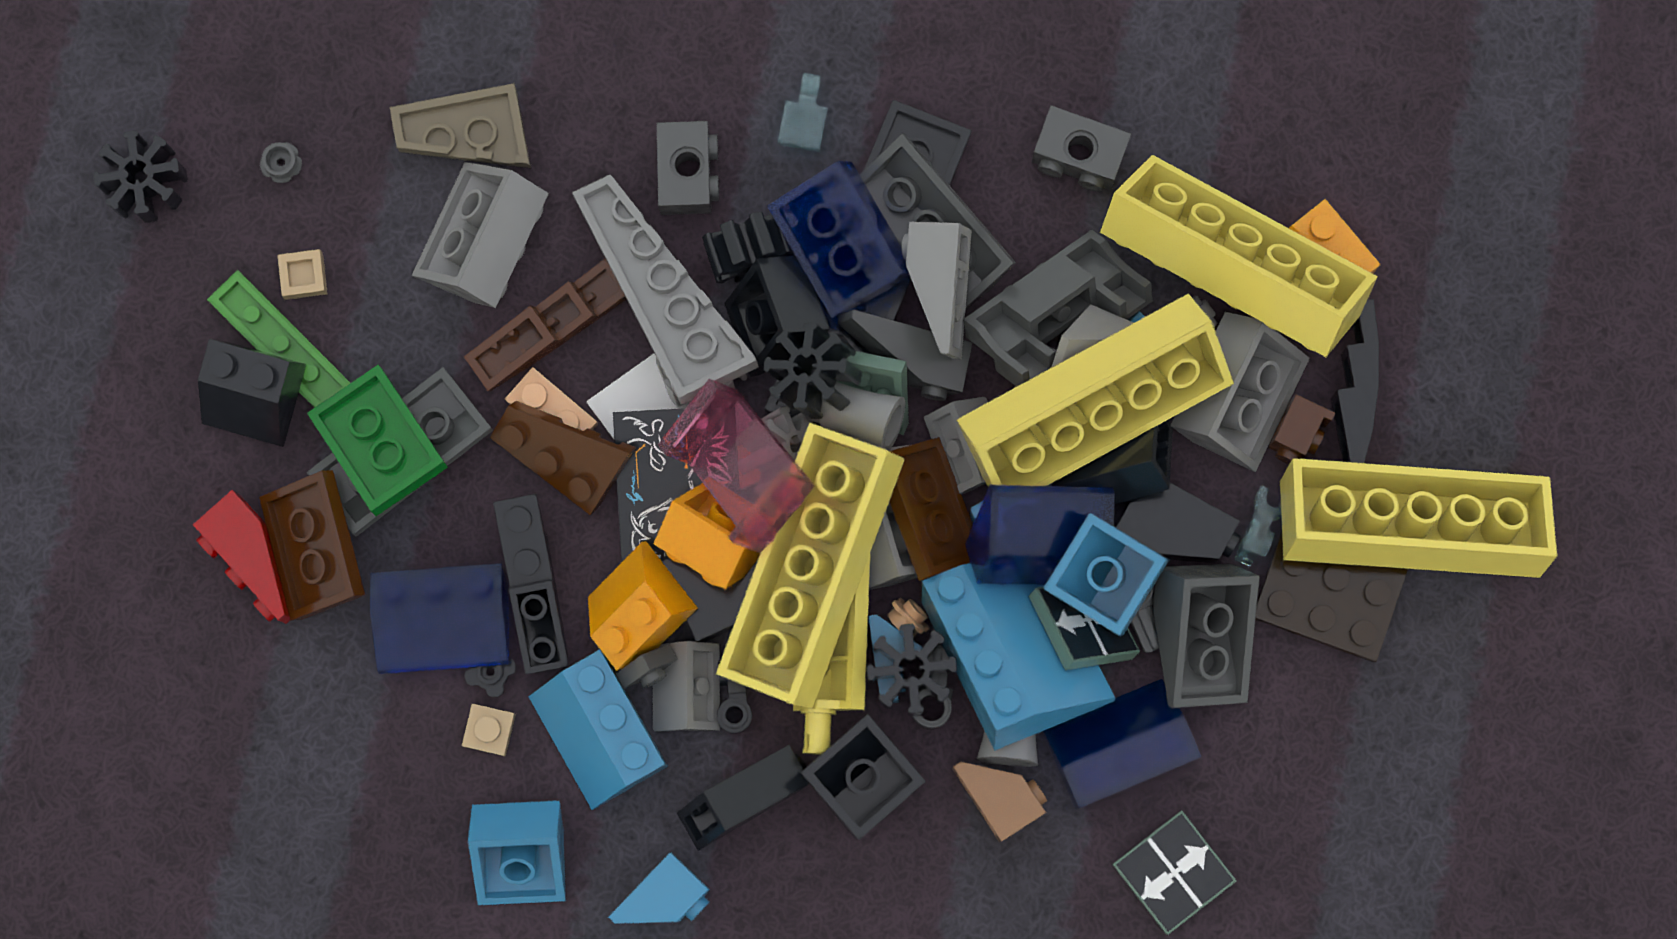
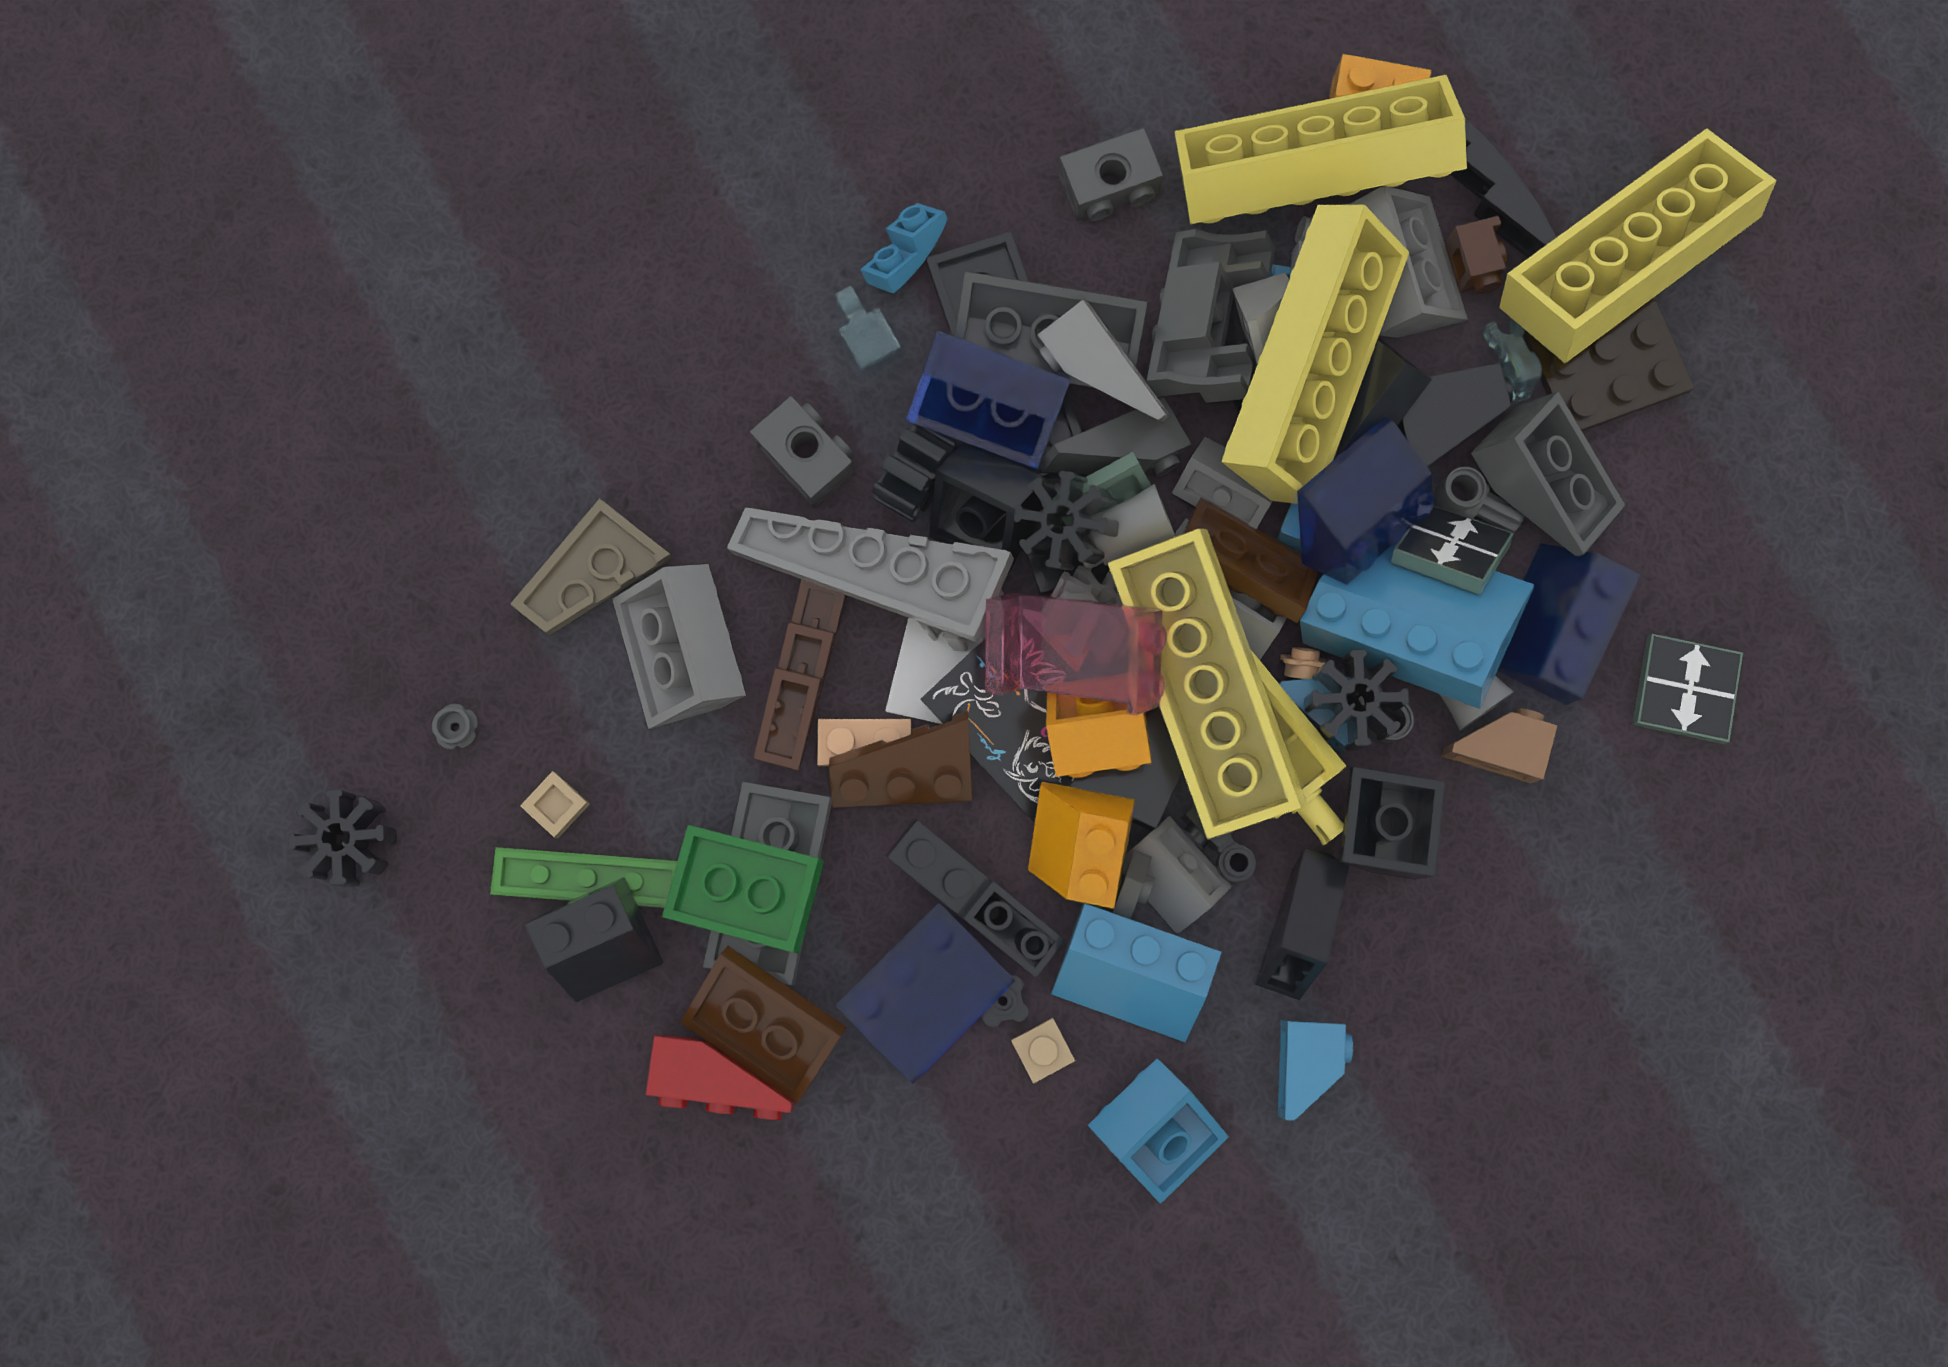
camera: 45 degrees left, 0 degrees up
(898, 77) = (912, 241): none -> dark azure slope
(1106, 574) = (1450, 487): dark azure slope -> none

